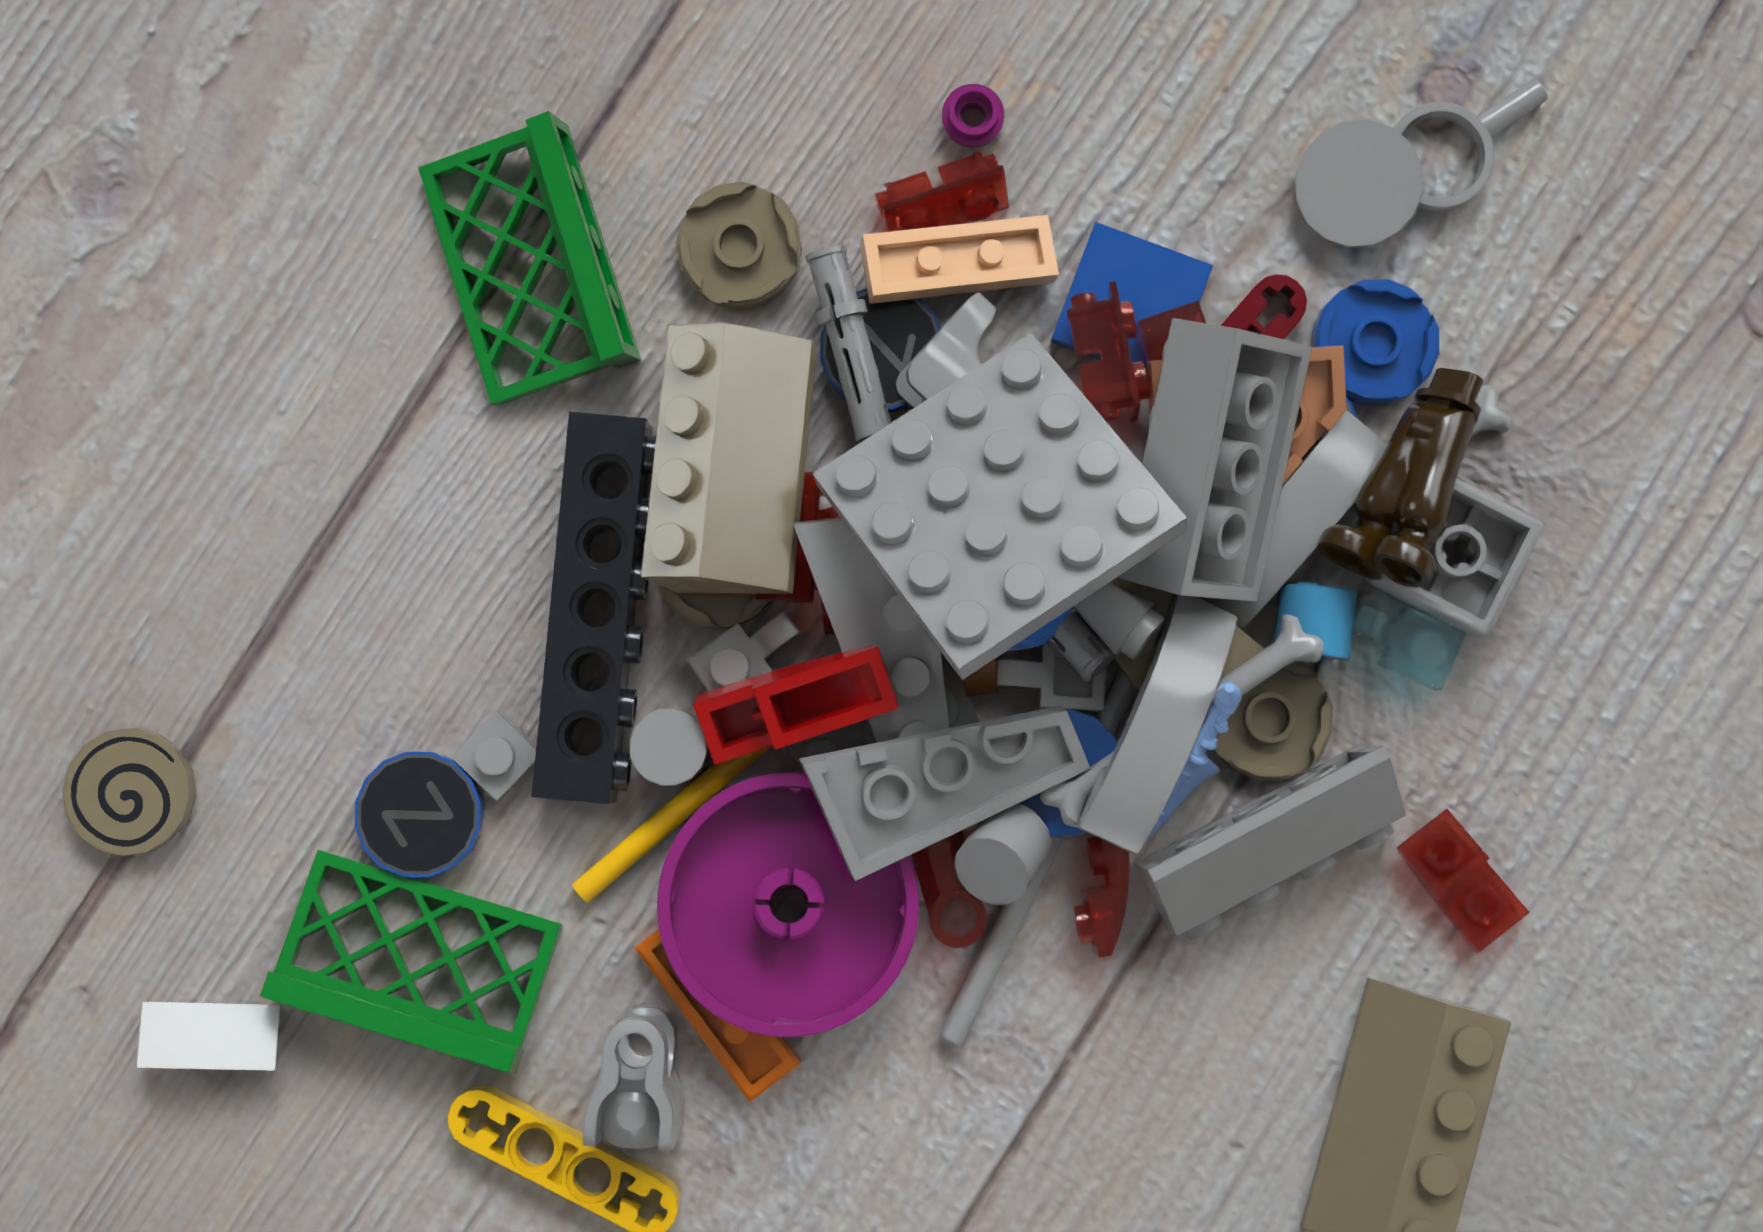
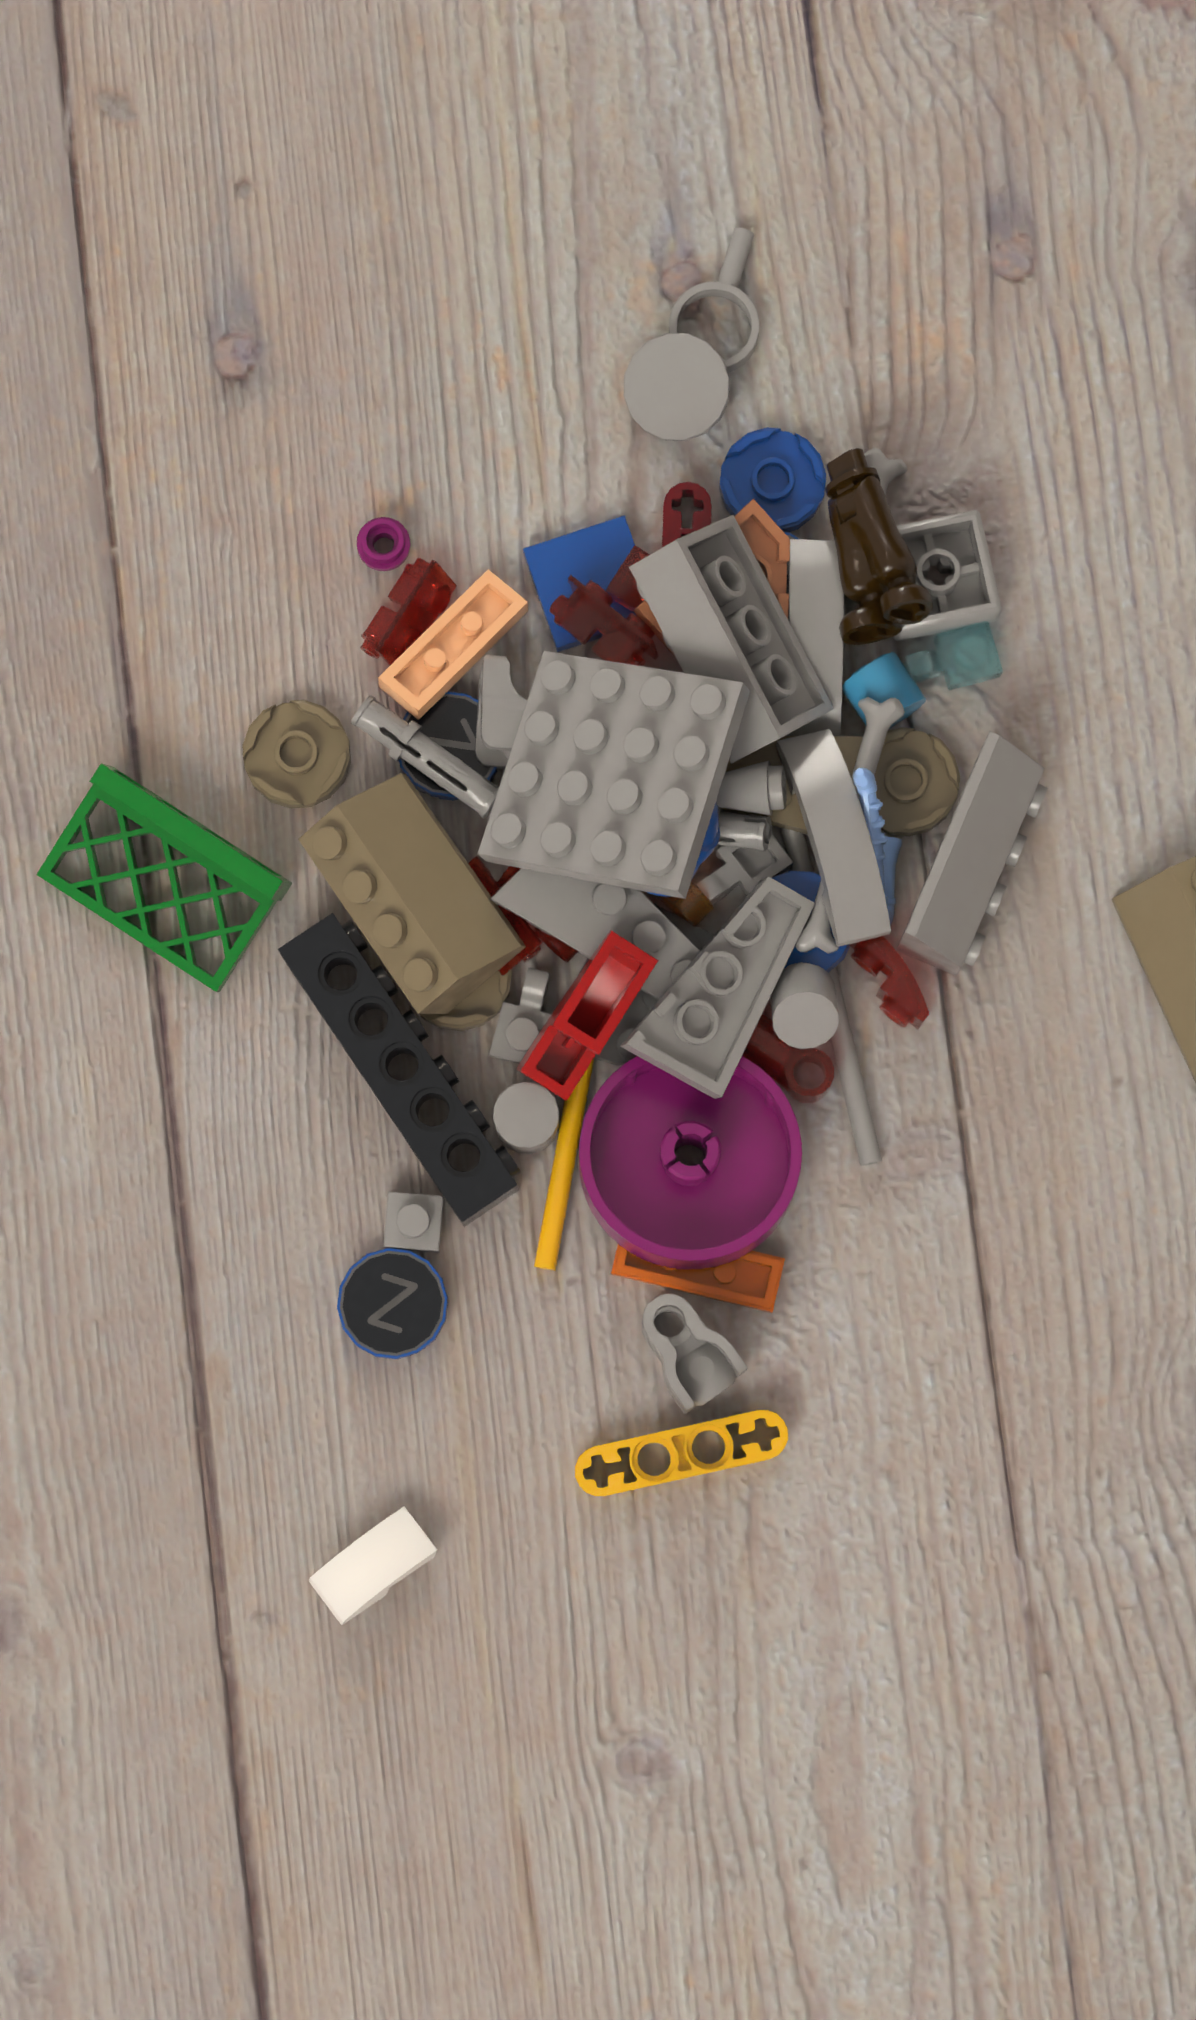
camera: 40 degrees left, 5 degrees down
(129, 792) = (182, 1449): dark tan tile -> none
(393, 1015) = (487, 1449): green fence -> none
(1462, 881) = (1119, 786): clear red slope -> none

